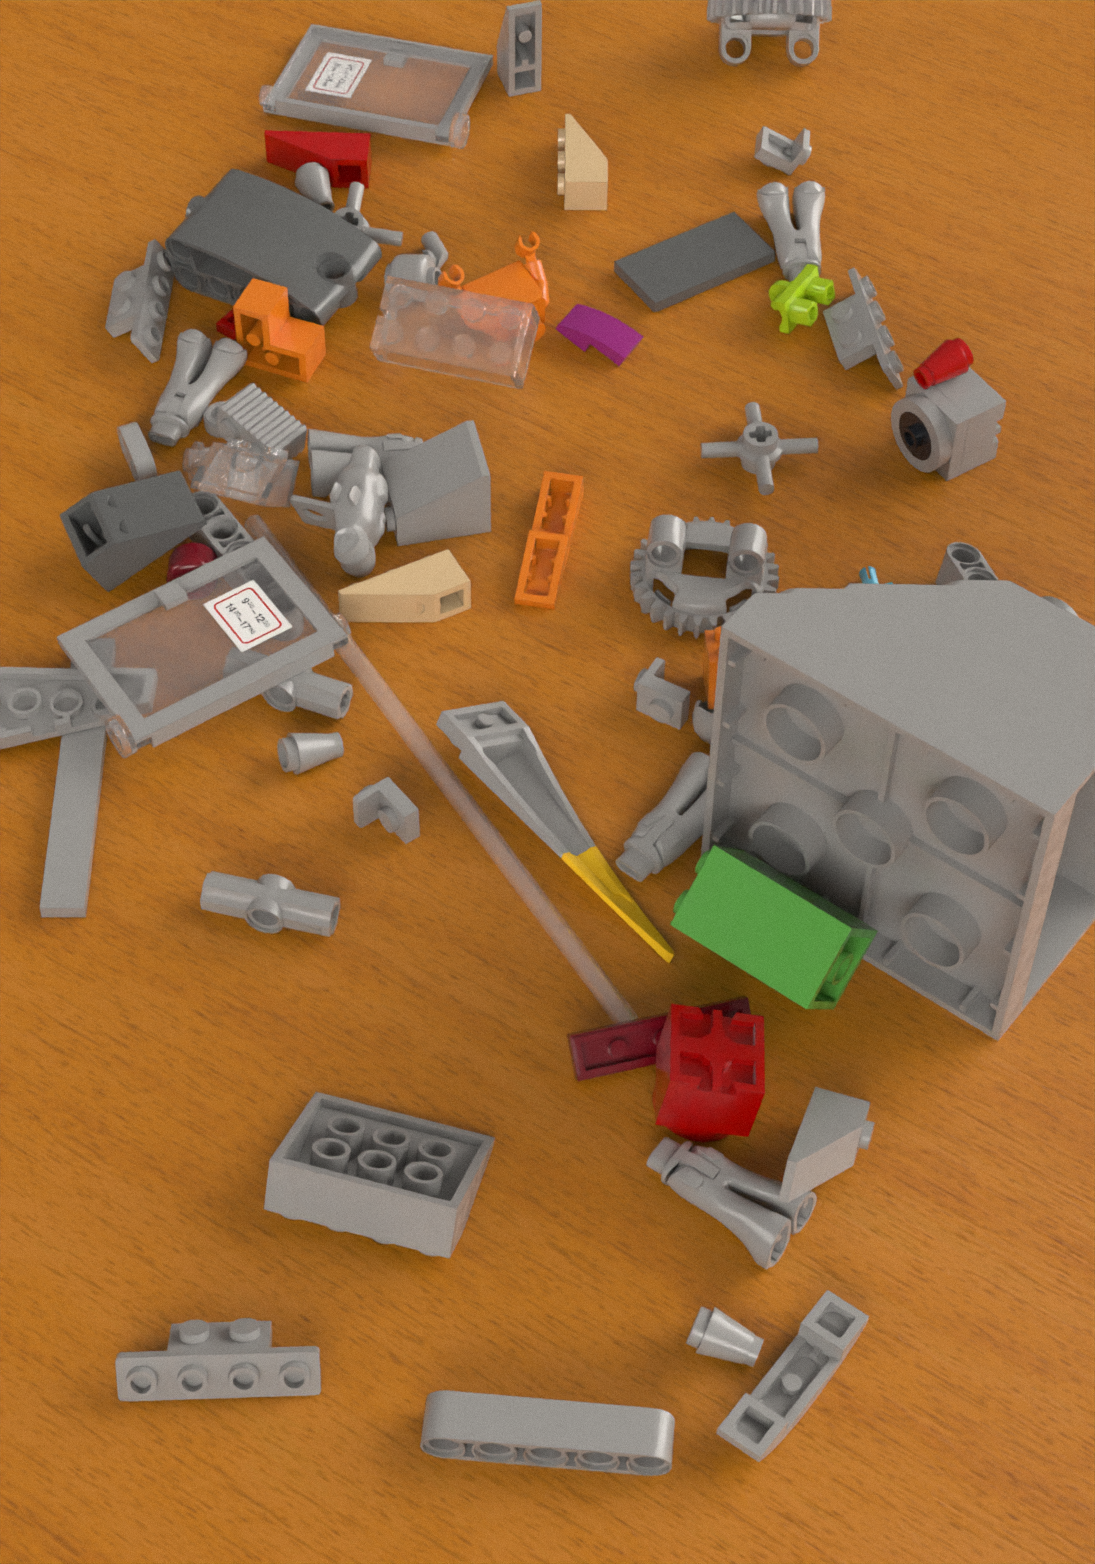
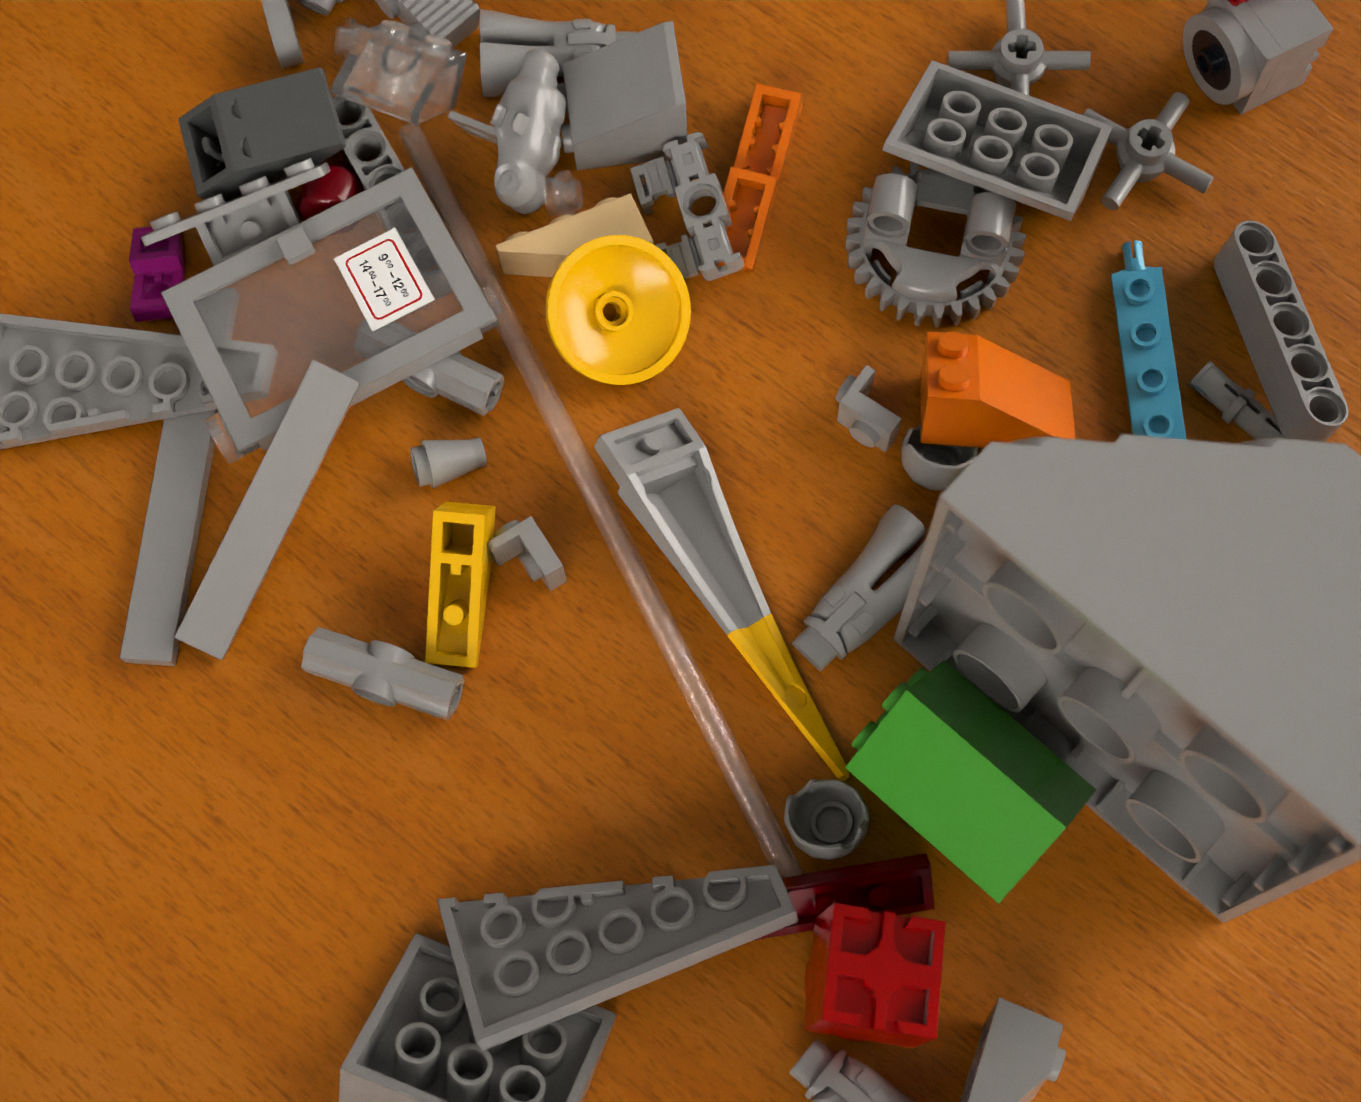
camera: 10 degrees right, 20 degrees up
(41, 625) = (155, 270): none -> magenta slope
(119, 583) = (244, 220): none -> light grey bracket
(162, 786) = (267, 510): none -> light grey tile
(329, 831) = (458, 582): none -> yellow slope
(389, 556) = (563, 194): none -> clear plate
(460, 616) = (648, 302): none -> yellow dish
(478, 1068) = (585, 943): none -> light grey wing
(515, 578) = (708, 234): none -> light grey piece
(658, 980) = (827, 819): none -> light grey hair
(751, 492) = (999, 140): none -> light grey slope
(870, 504) = (1148, 152): none -> light grey bar

